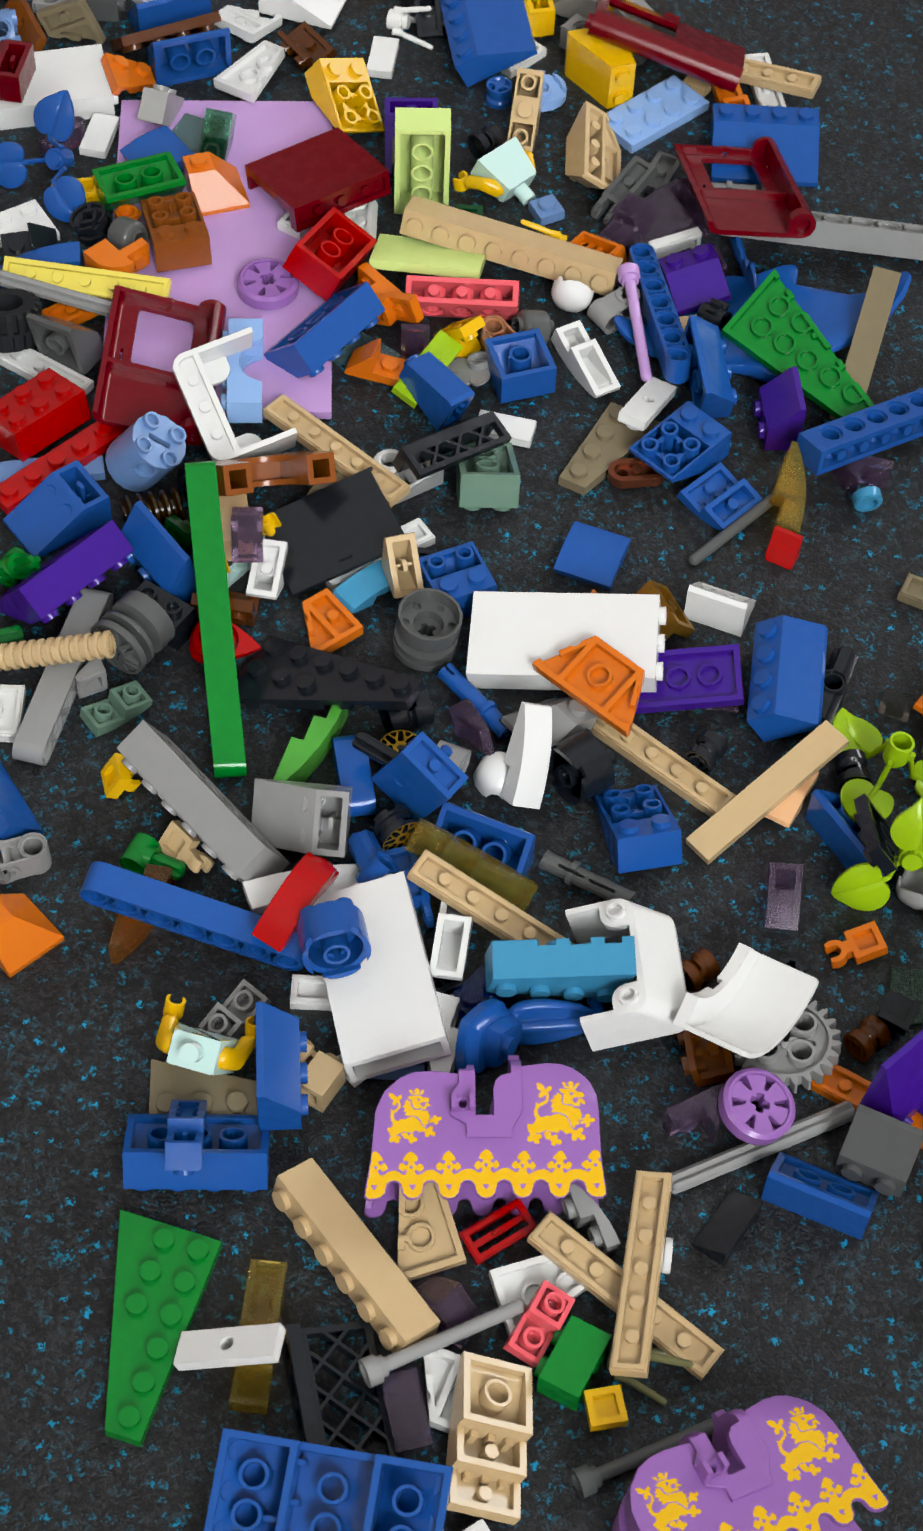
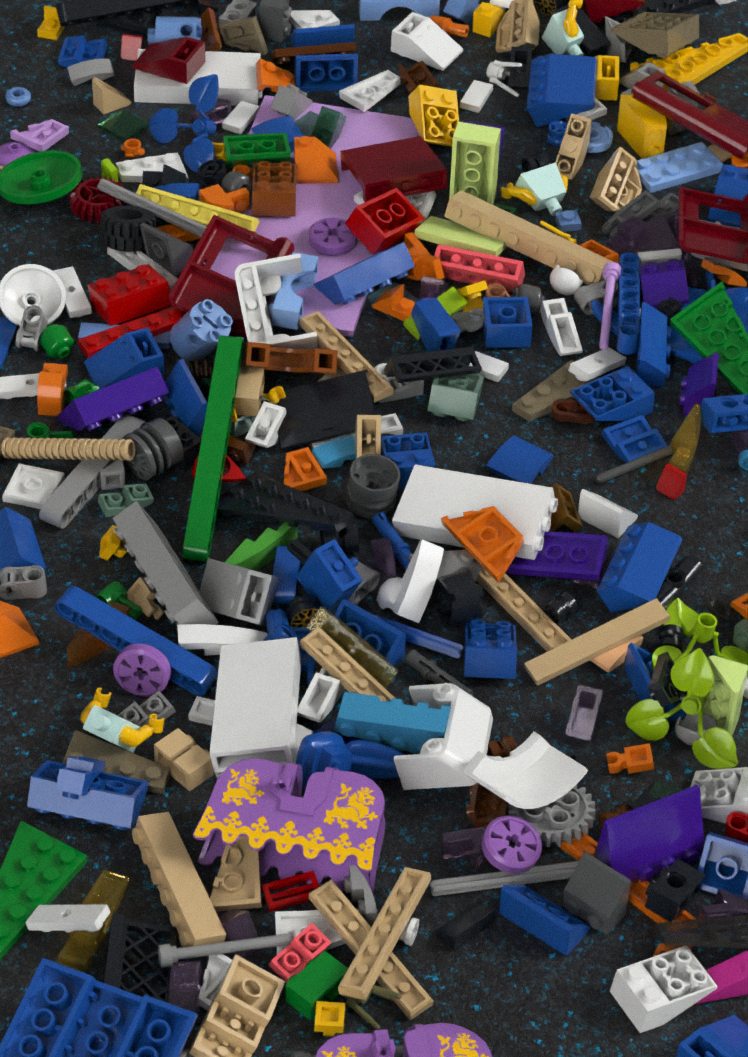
camera: 15 degrees right, 10 degrees down
(198, 961) = (150, 660): none -> medium lavender wheel
(247, 23) = (378, 57): white wing -> none
(247, 534) = (254, 394): clear purple slope -> none
(279, 1069) = (160, 744): blue slope -> none
(300, 889) = (207, 638): red arch -> none
(333, 938) = (227, 667): blue brick -> none
(550, 829) = (427, 639): none -> blue axle
(758, 250) = (724, 273): none -> orange slope

